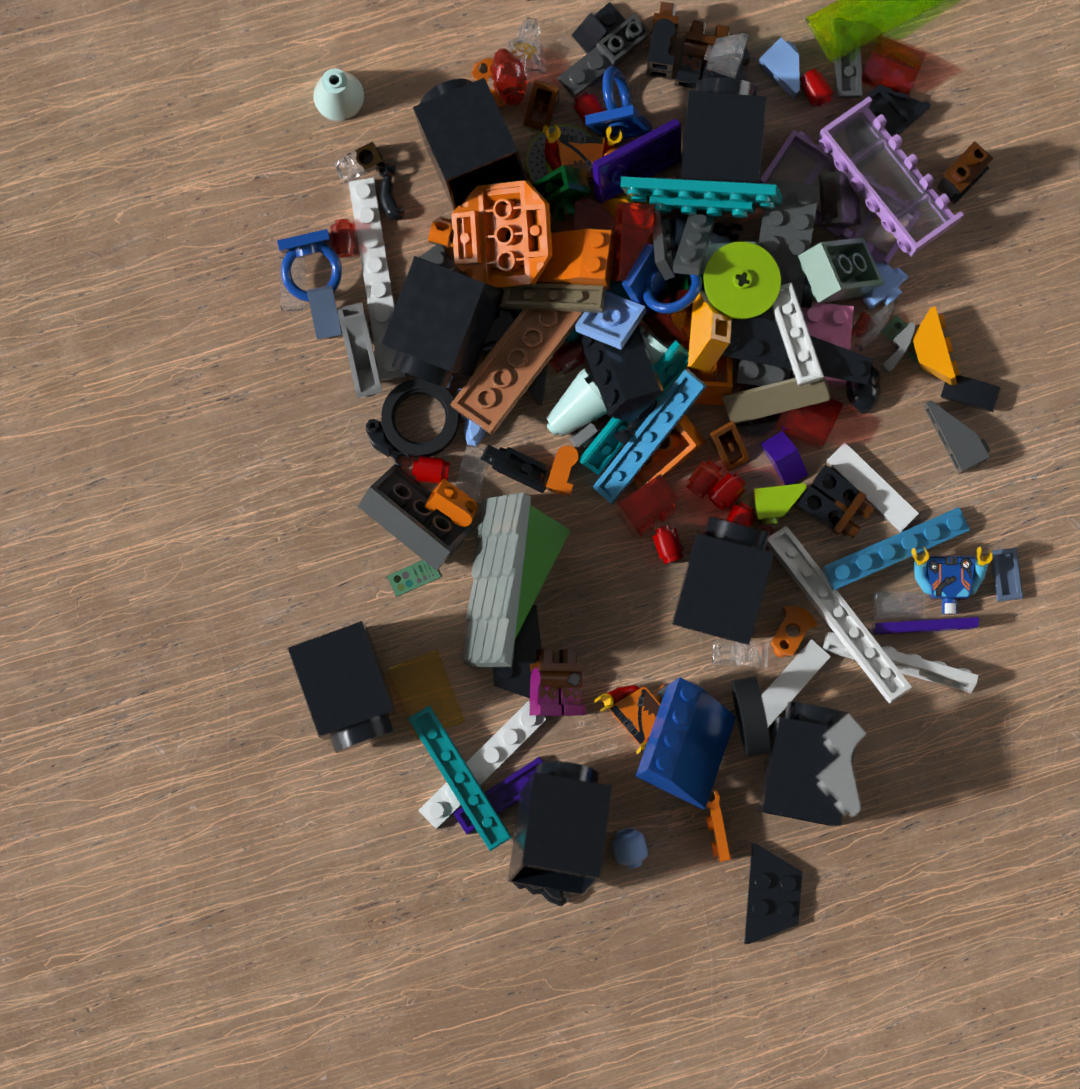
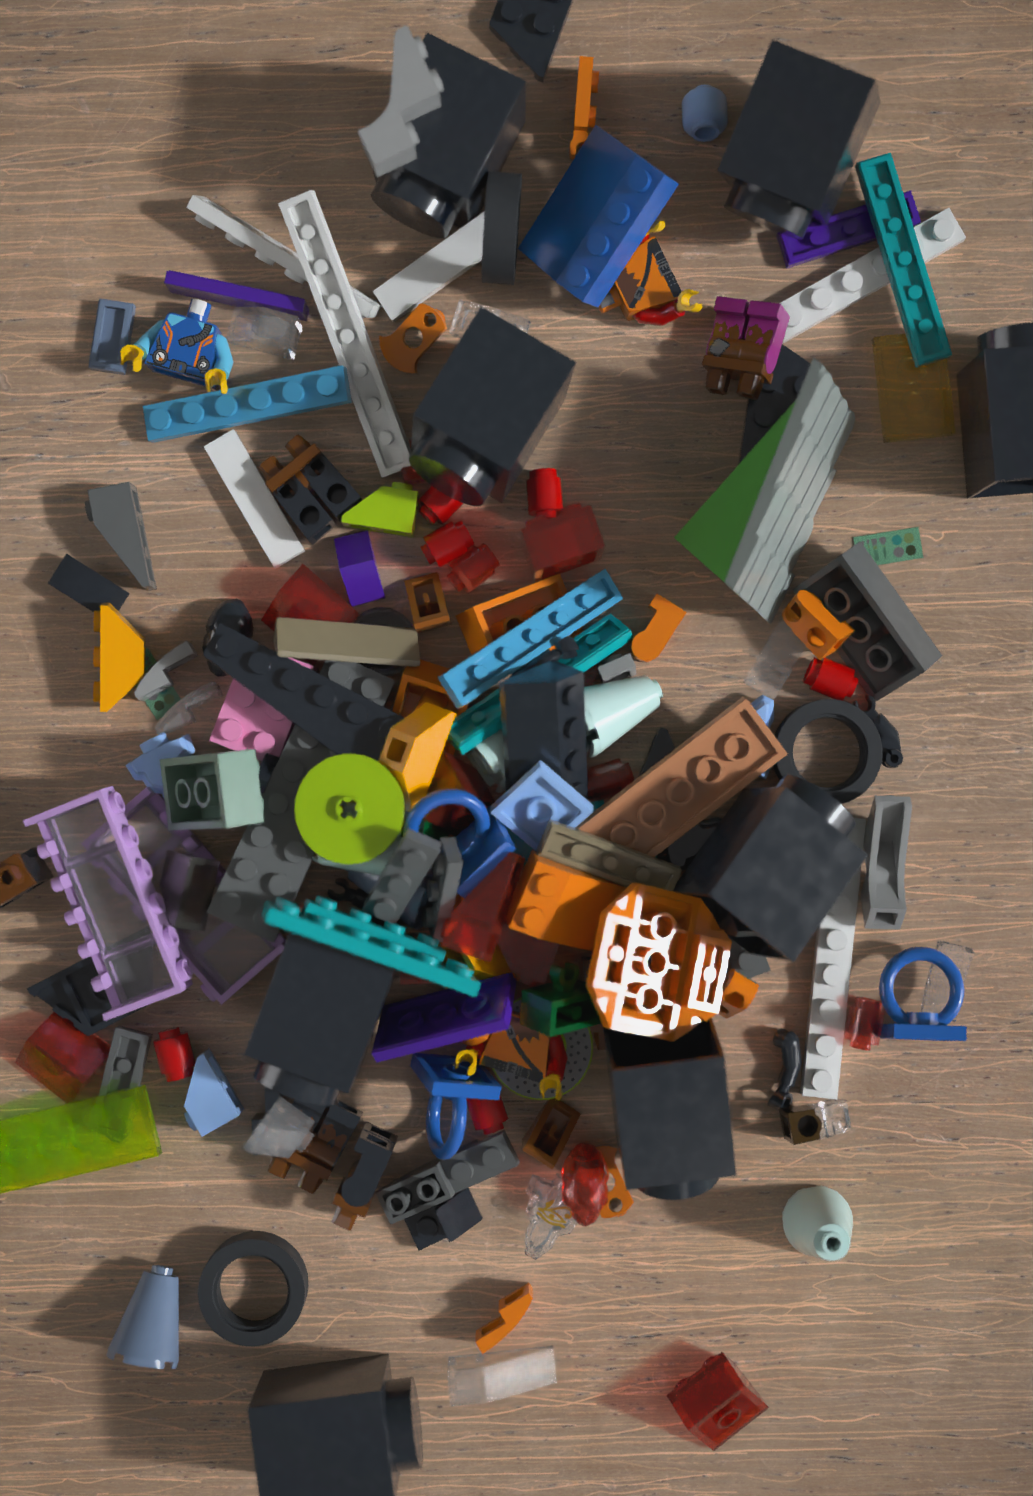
camera: 165 degrees left, 5 degrees up
(324, 312) = (919, 931): sand blue tile -> none
(518, 467) = (714, 650): black hinge -> none
(796, 336) = (297, 711): white tile -> none
(861, 325) = (206, 714): clear red tile -> none

